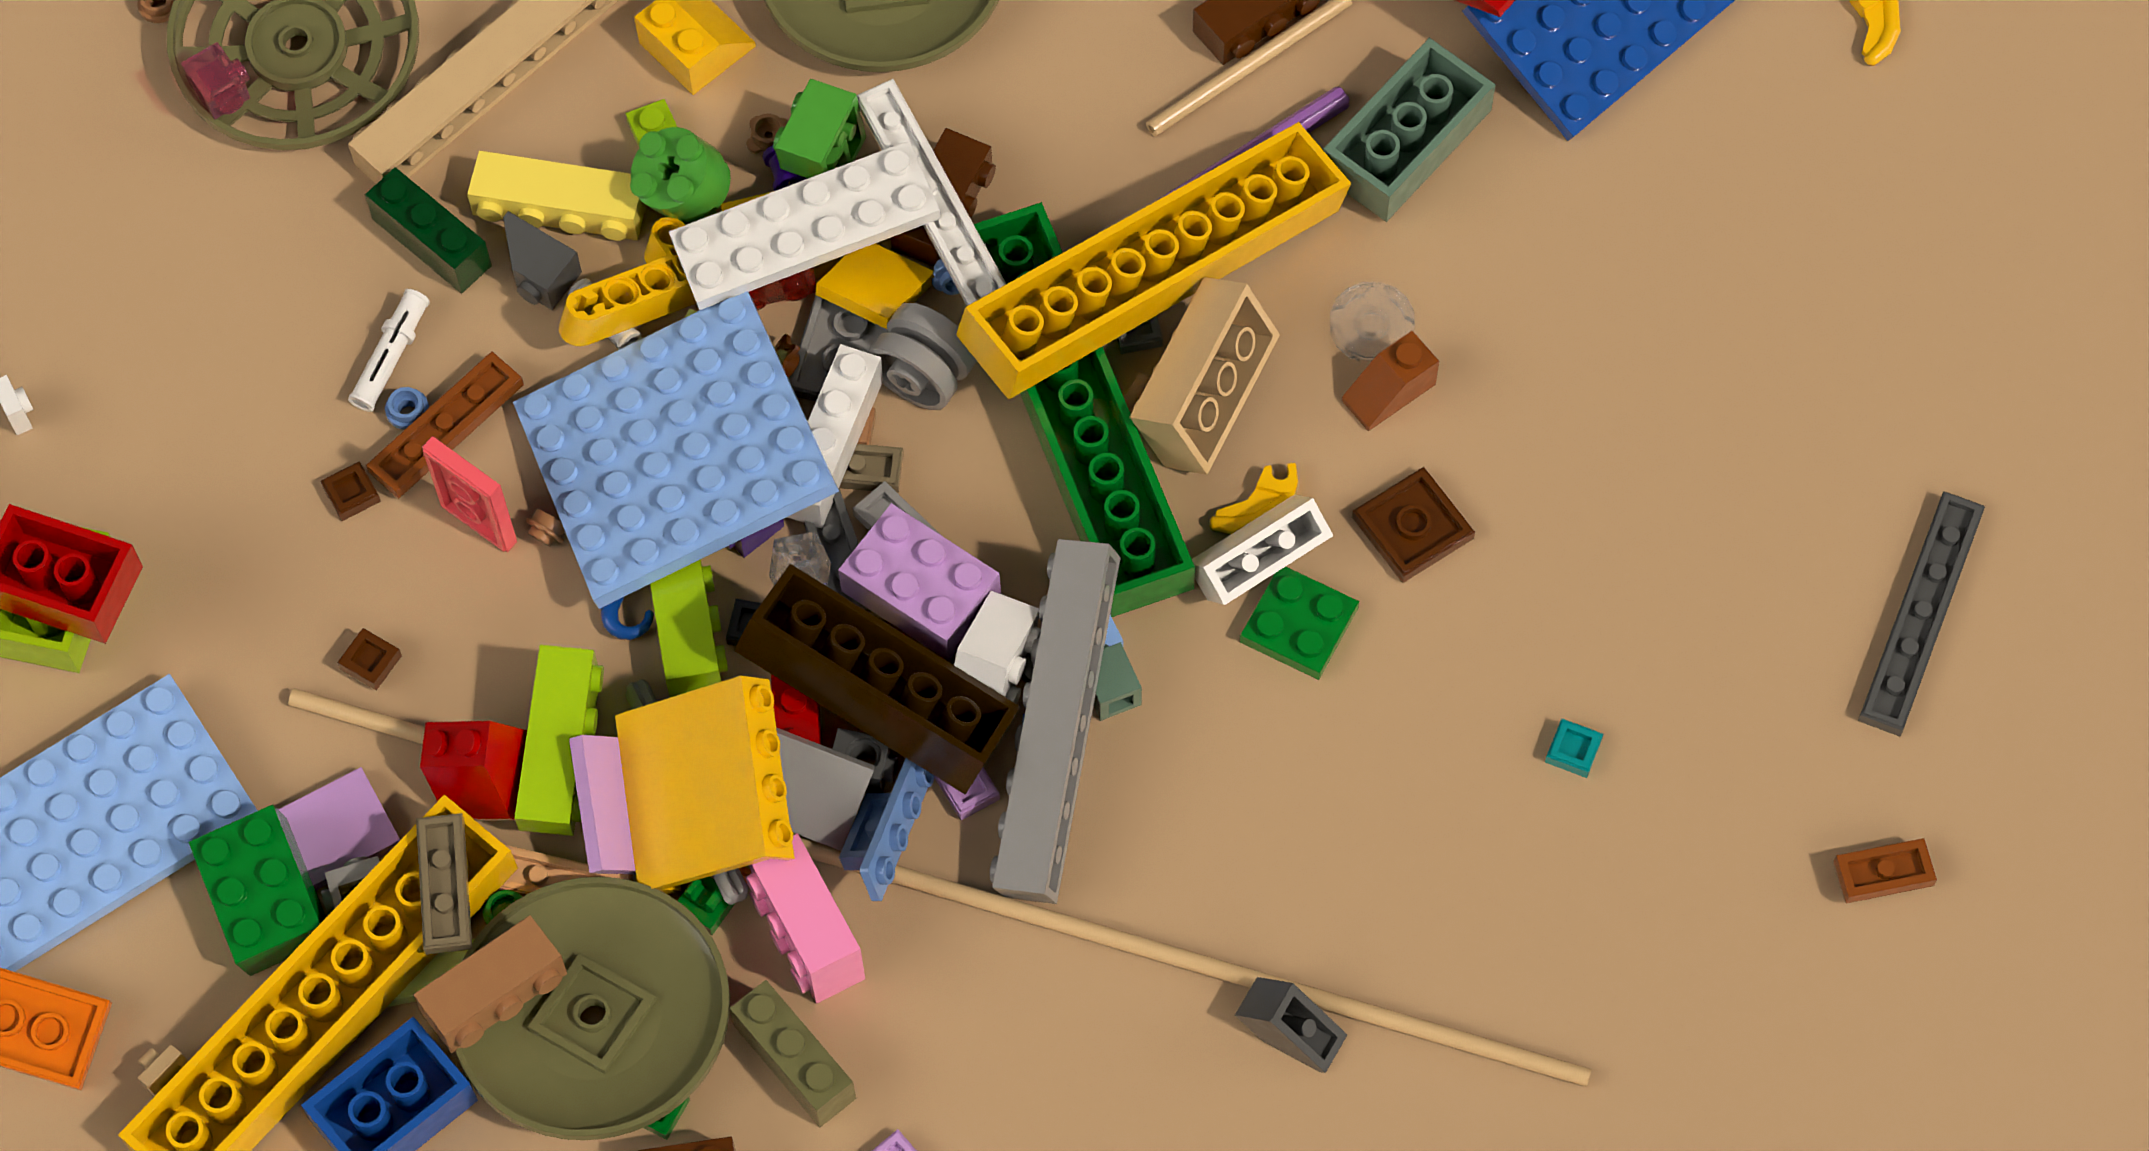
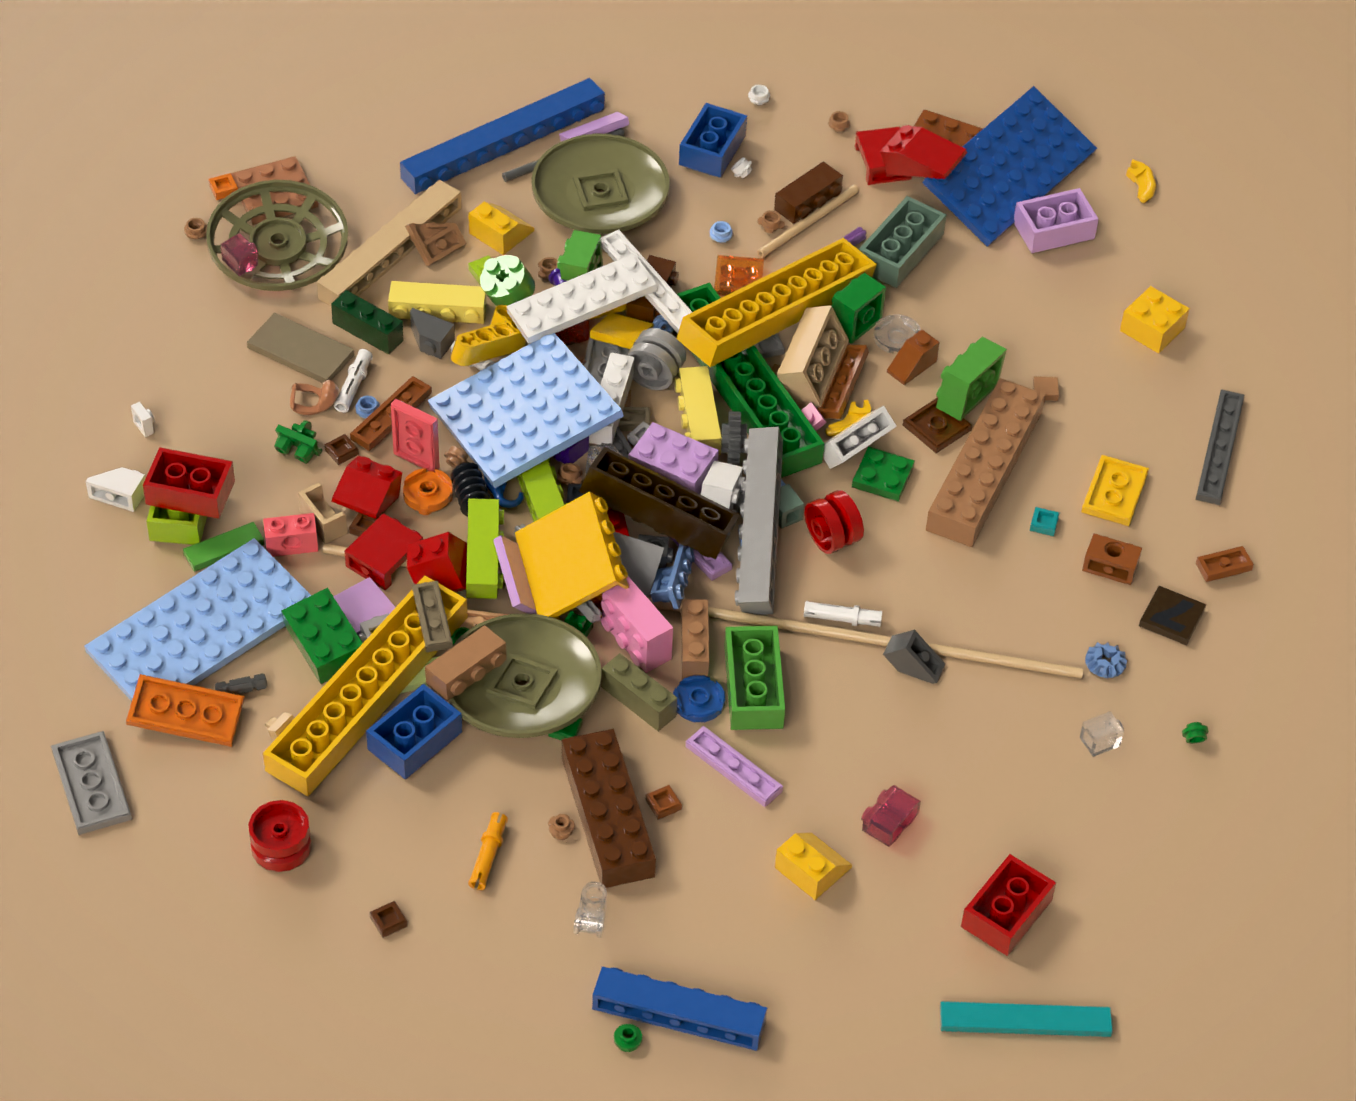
camera: 10 degrees left, 15 degrees down
(111, 971) = (243, 684): none -> dark grey axle
(117, 679) = (213, 549): none -> bright green tile
(234, 671) = (290, 534): none -> coral brick
(257, 466) = (301, 437): none -> green hips
(295, 629) = (328, 523): none -> tan panel
(307, 272) = (300, 348): none -> dark tan tile
(340, 378) = (326, 394): none -> nougat piece
(378, 586) = (368, 487): none -> red slope
(386, 714) = (380, 550): none -> red panel
(484, 617) = (428, 502): none -> orange plate
(559, 602) = (468, 484): none -> black piece
(572, 63) = (435, 240): none -> medium nougat wing
(740, 580) = (570, 474): none -> medium nougat plate
(899, 1069) = (699, 698): none -> blue tile
(907, 952) = (694, 638): none -> medium nougat brick
(987, 470) = (698, 406): none -> light yellow brick
(998, 1045) = (754, 678): none -> bright green brick
(1036, 537) = (733, 438): none -> dark grey gear
(1087, 68) = (721, 231): none -> light blue plate
(1103, 177) = (736, 272): none -> clear orange plate
(1176, 52) = (771, 221): none -> medium nougat plate
(1186, 497) = (813, 416): none -> bright pink plate
(1186, 918) = (844, 614): none -> white pin
(1188, 732) = (834, 521): none -> red wheel
(1257, 423) = (844, 381): none -> dark orange plate
(1303, 271) = (859, 306): none -> green brick
(1483, 443) = (970, 378): none -> bright green brick
(1485, 618) = (985, 462): none -> medium nougat brick
(1622, 461) = (1048, 386): none -> medium nougat tile
(1625, 1070) = (1102, 667): none -> medium blue gear
(1693, 865) = (1112, 559): none -> dark orange brick
(1698, 103) = (1055, 220): none -> lavender brick
(1713, 691) = (1115, 490): none -> yellow tile
(1772, 969) = (1172, 615): none -> dark brown tile
(1845, 332) = (1154, 319): none -> yellow brick

